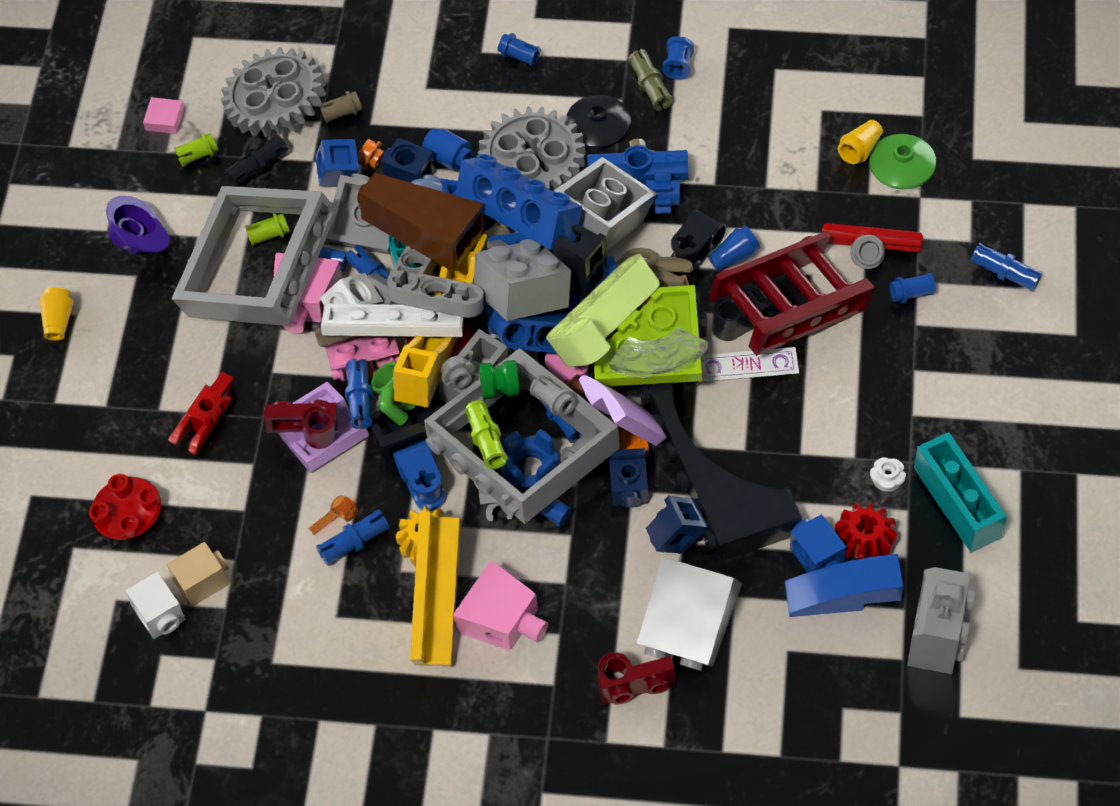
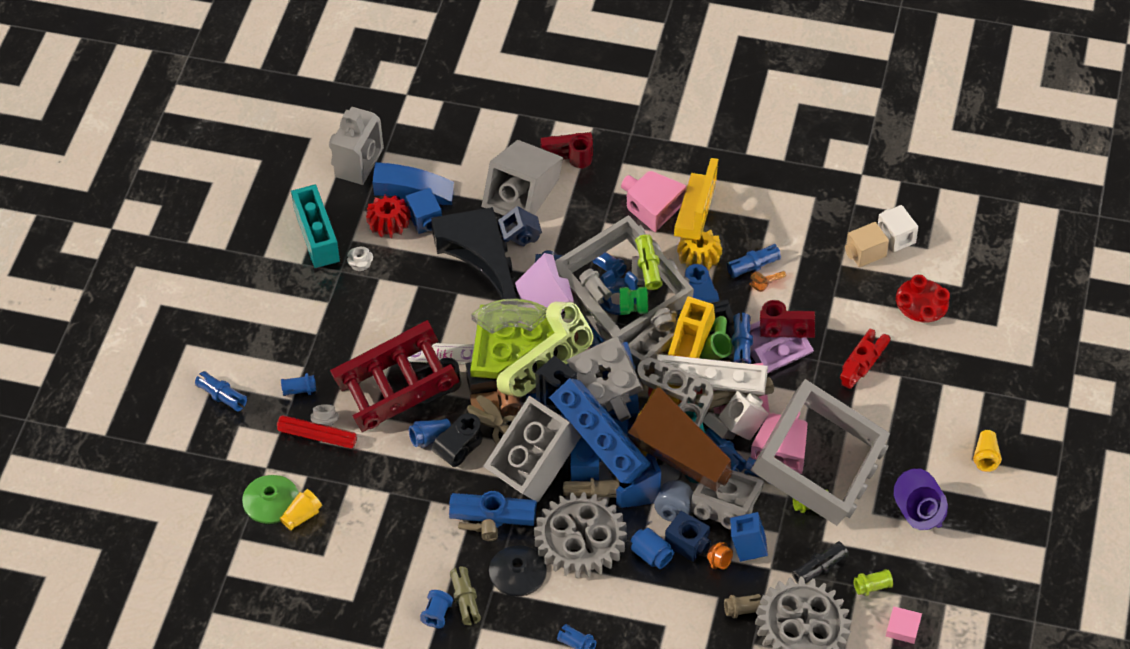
camera: 175 degrees left, 5 degrees down
(667, 192) = (476, 480): blue gear -> none

